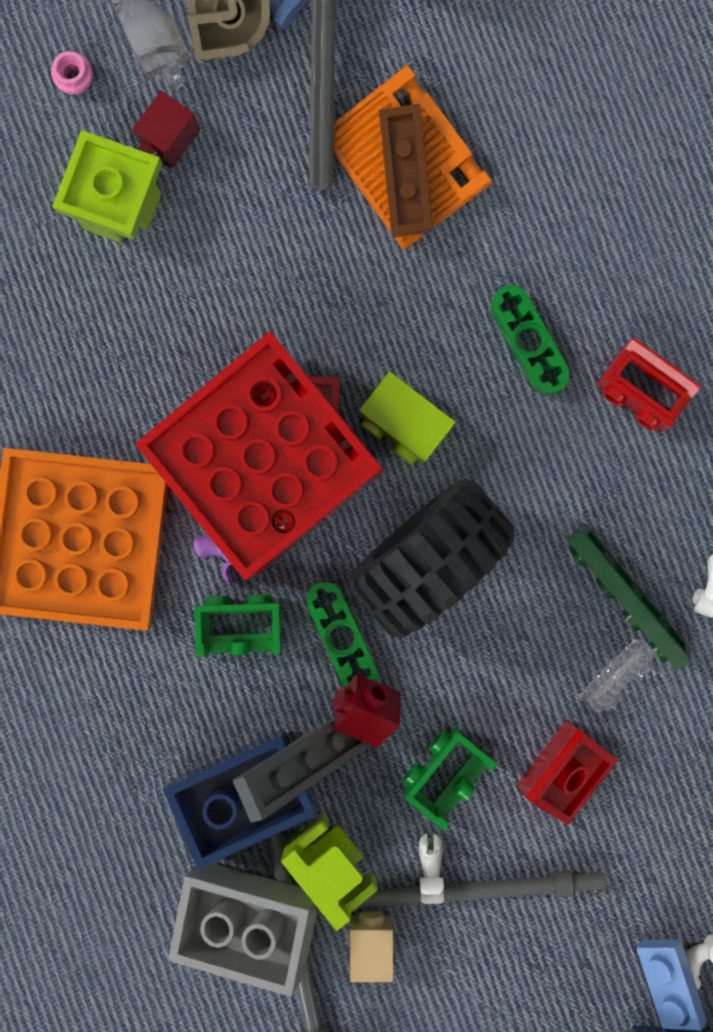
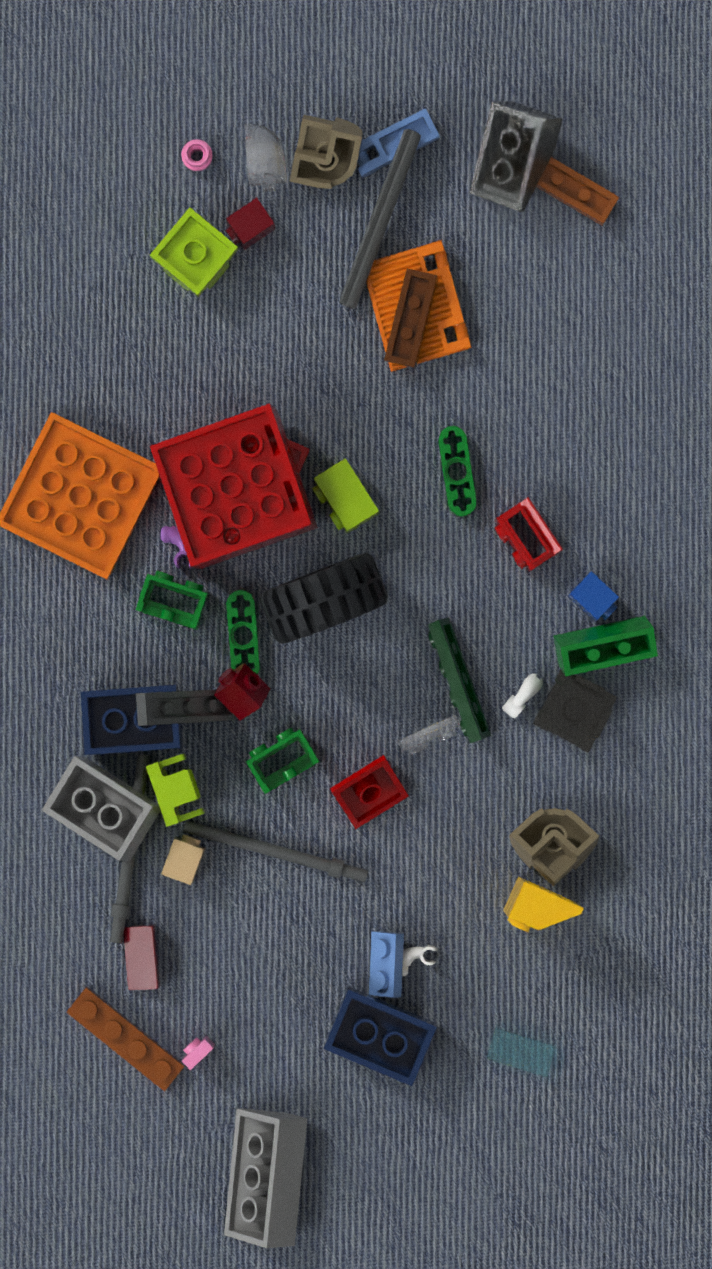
camera: 20 degrees right, 0 degrees up
(431, 857) = (249, 814): white arm -> none

